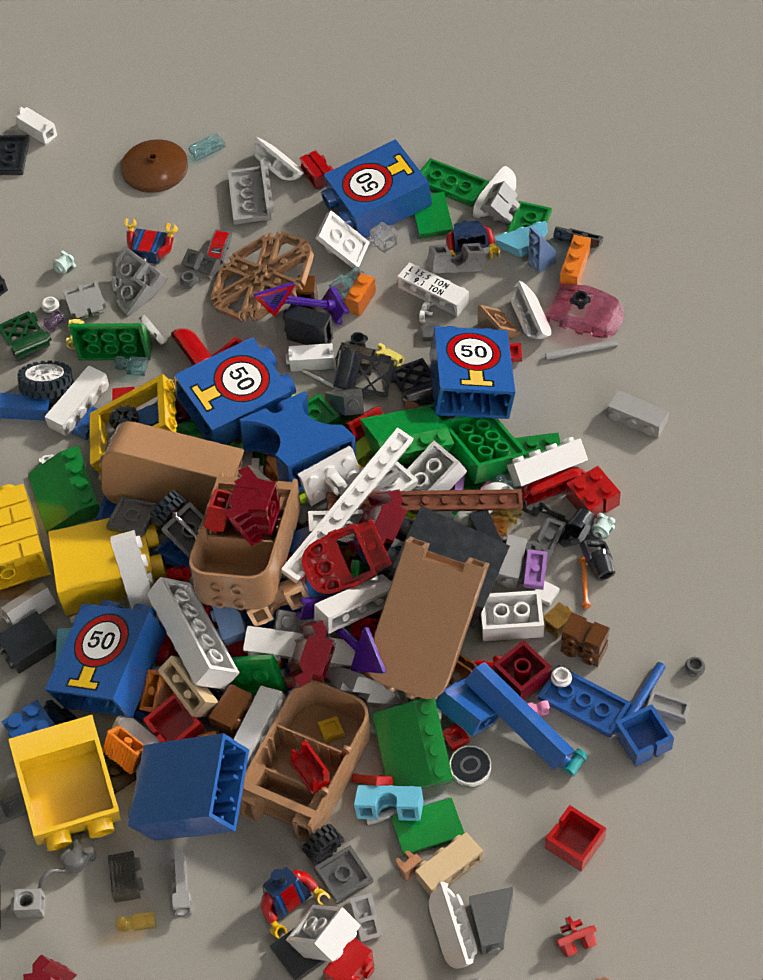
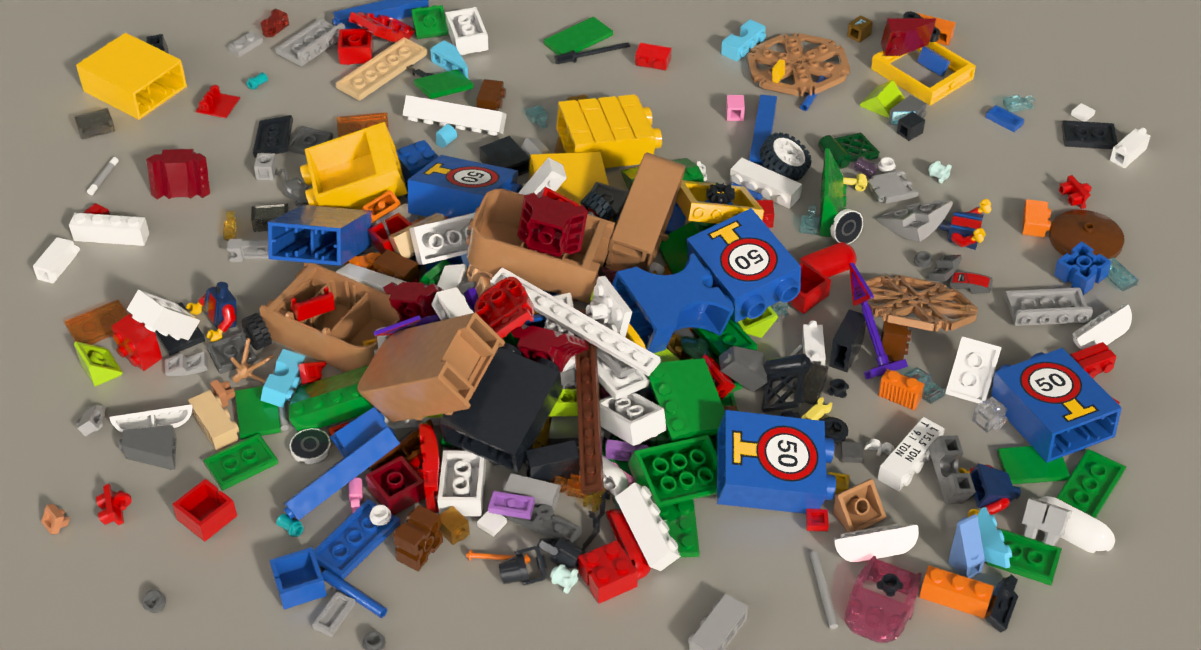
camera: 90 degrees right, 10 degrees down
(98, 166) = (1077, 191): none -> red hips
(133, 196) = (1036, 218): none -> orange brick
(206, 165) = (1082, 268): none -> blue brick
(375, 847) = (245, 370): none -> medium nougat plant
(402, 342) = (840, 429): none -> black gear
(483, 638) = (430, 466): none -> red slope
(497, 829) = (240, 461): none -> green tile
(684, 865) = (154, 601): none -> dark grey tile

